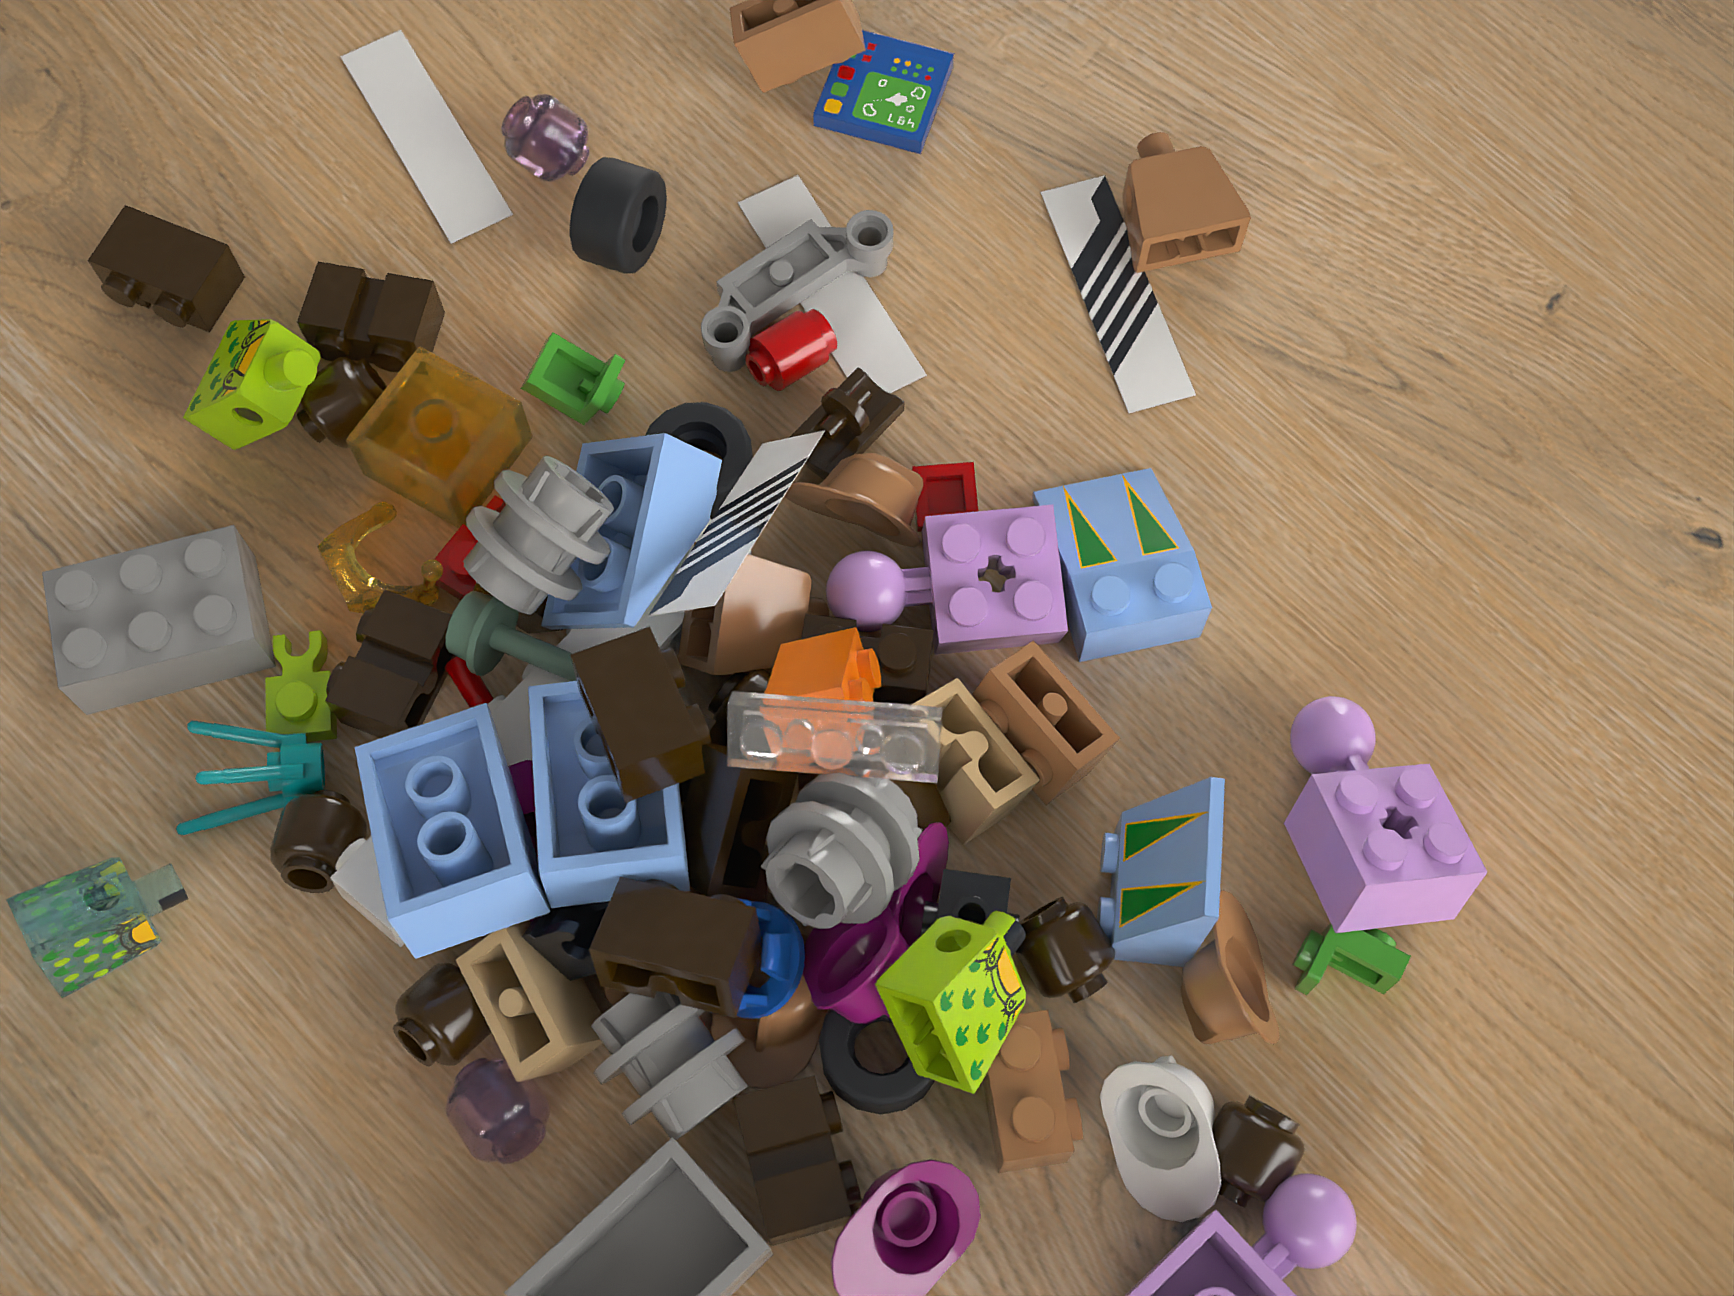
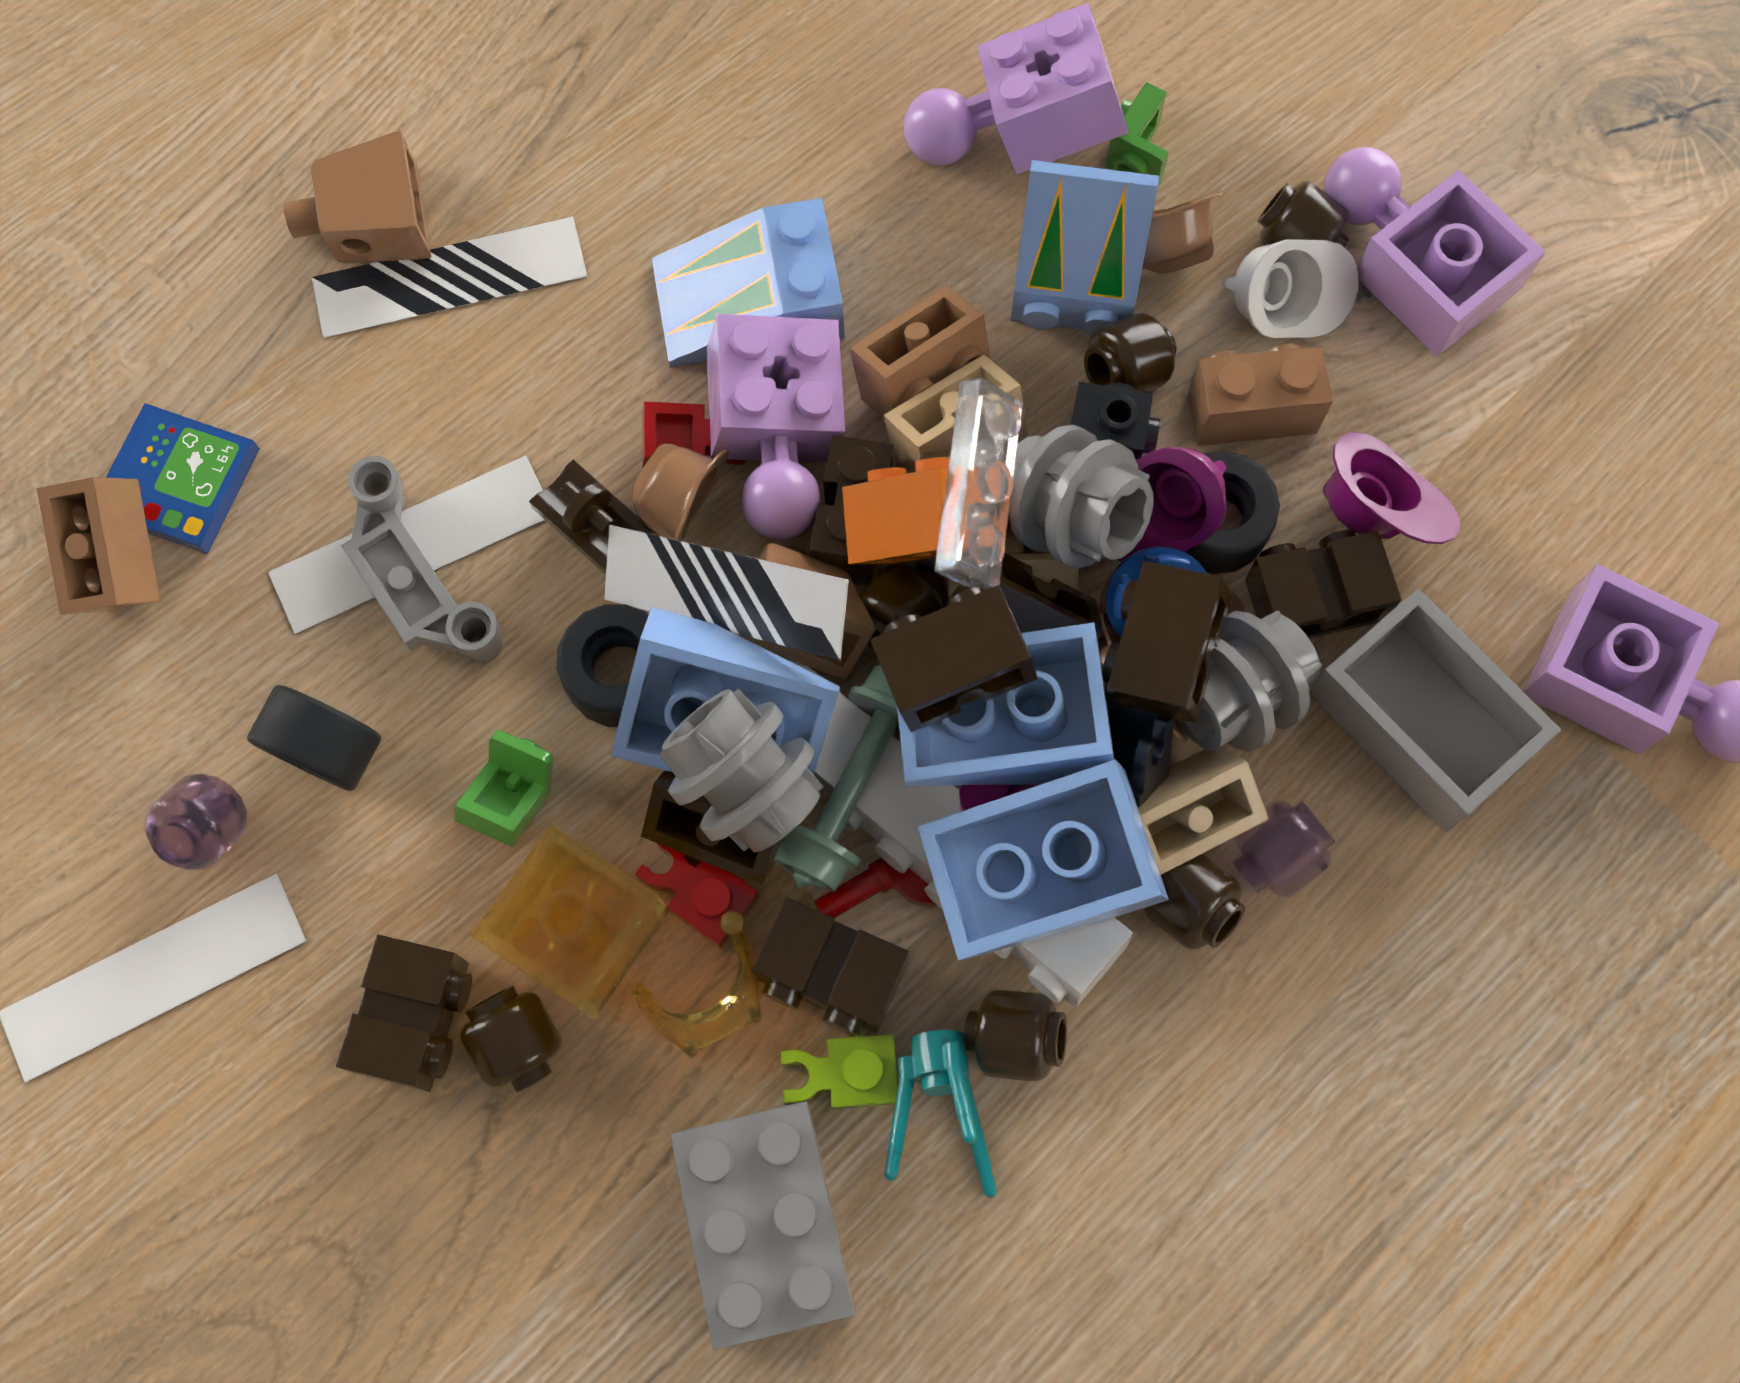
camera: 85 degrees left, 5 degrees up
(93, 920) = (1118, 1281): clear light blue torso -> none
(166, 266) = (307, 1262): dark brown brick -> none
(258, 371) = (482, 1131): lime torso -> none
(790, 349) = (491, 572): red brick -> none
(956, 997) = (1202, 413): lime torso -> none

